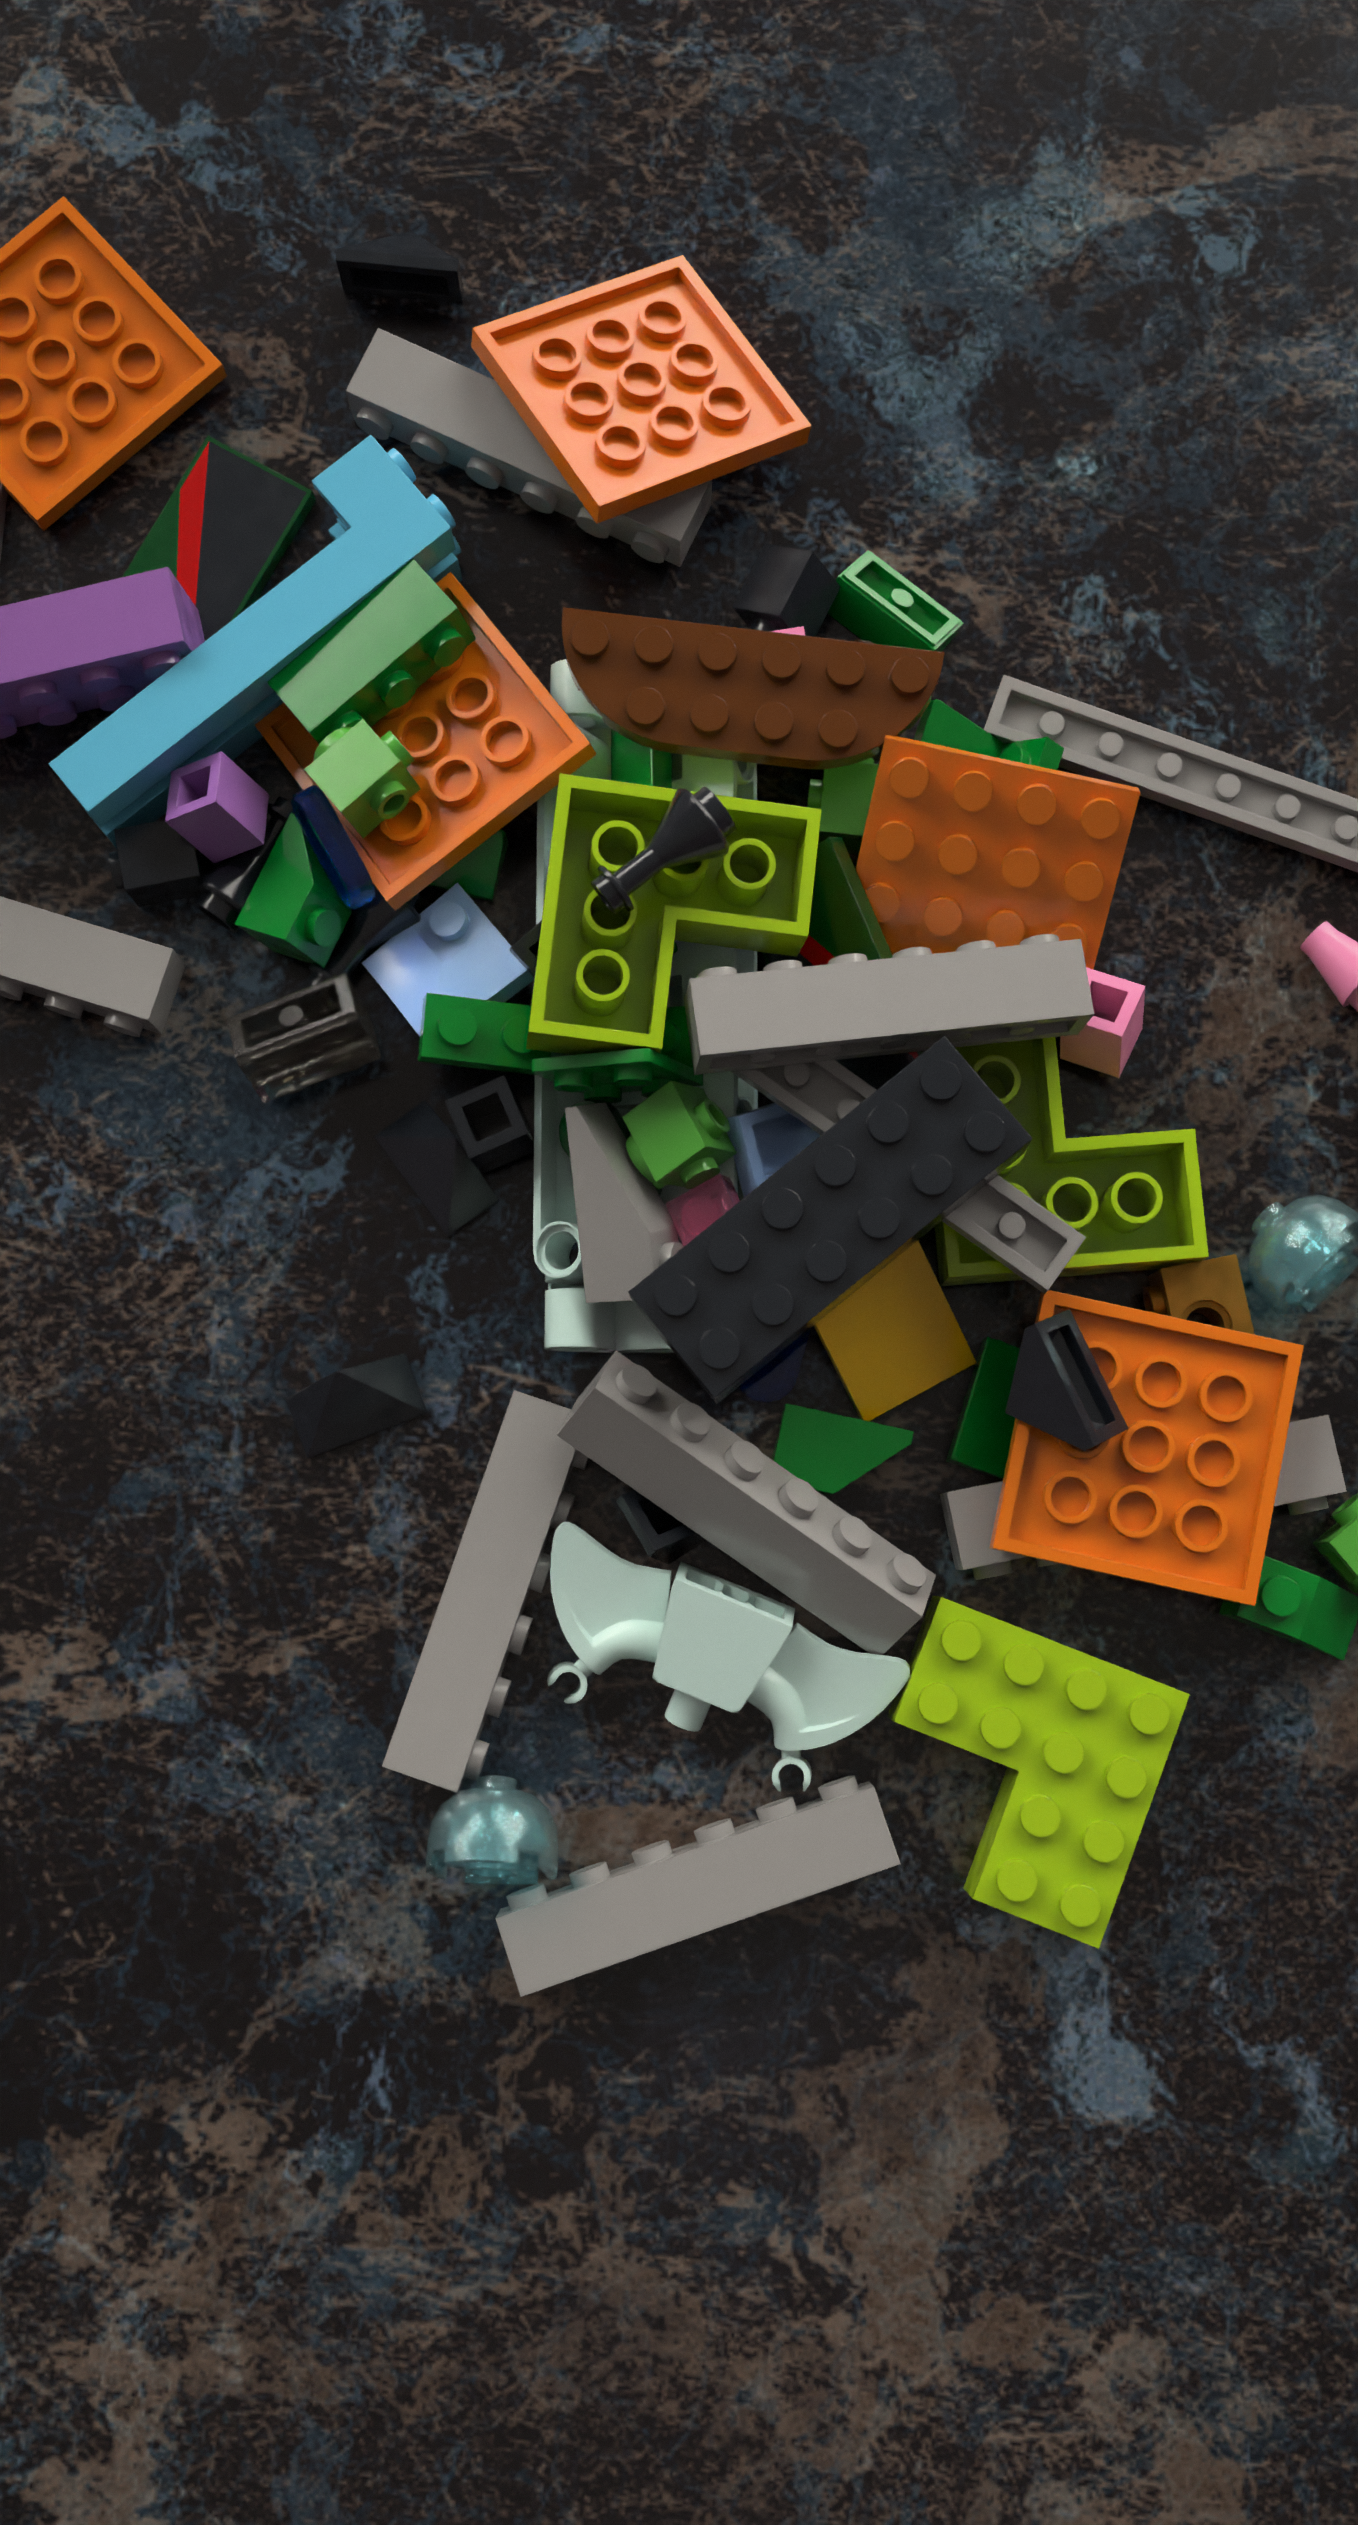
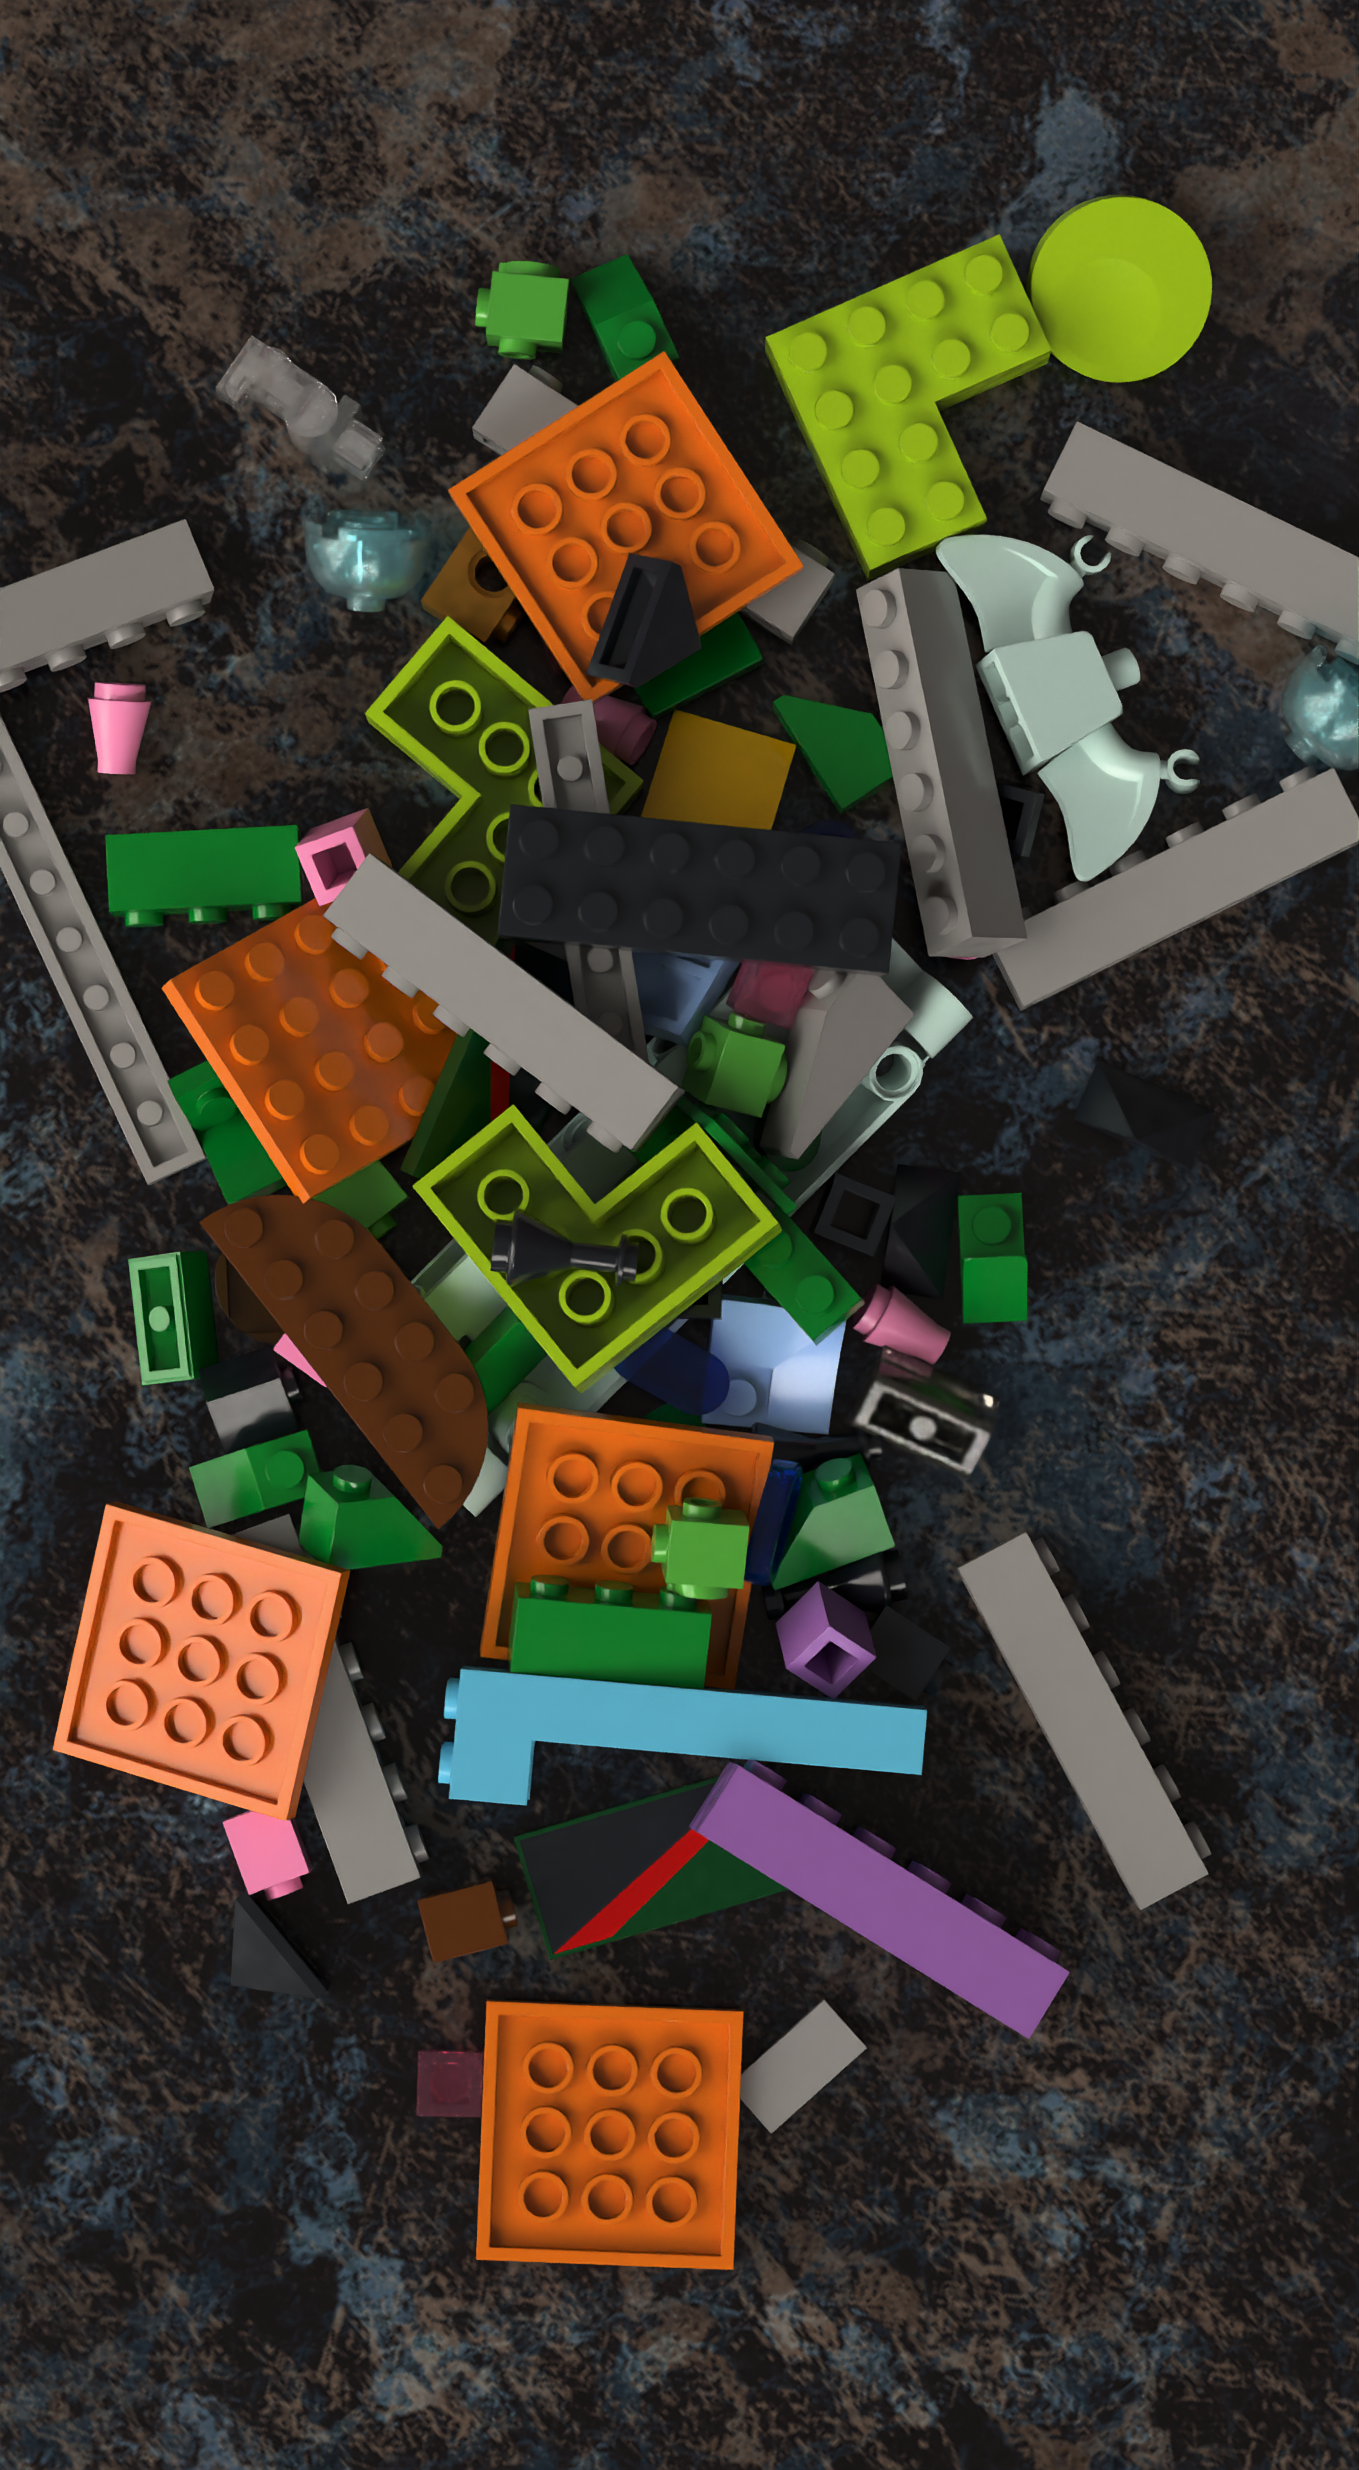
camera: 135 degrees left, 5 degrees up
(197, 293) = (450, 2083): none -> clear pink plate
(290, 404) = (467, 1919): none -> reddish brown brick
(367, 1199) = (992, 1258): none -> green slope
(385, 1085) = (898, 1323): none -> bright pink cone
(454, 314) = (268, 1853): none -> bright pink brick
(502, 889) = (677, 1373): none -> clear blue tile
(625, 572) = (359, 1522): none -> green slope
(719, 562) = (256, 1478): none -> green slope
(968, 2000) = (1120, 288): none -> lime piece
(1003, 1307) = (620, 726): none -> bright pink cone
(1188, 916) = (204, 874): none -> green brick

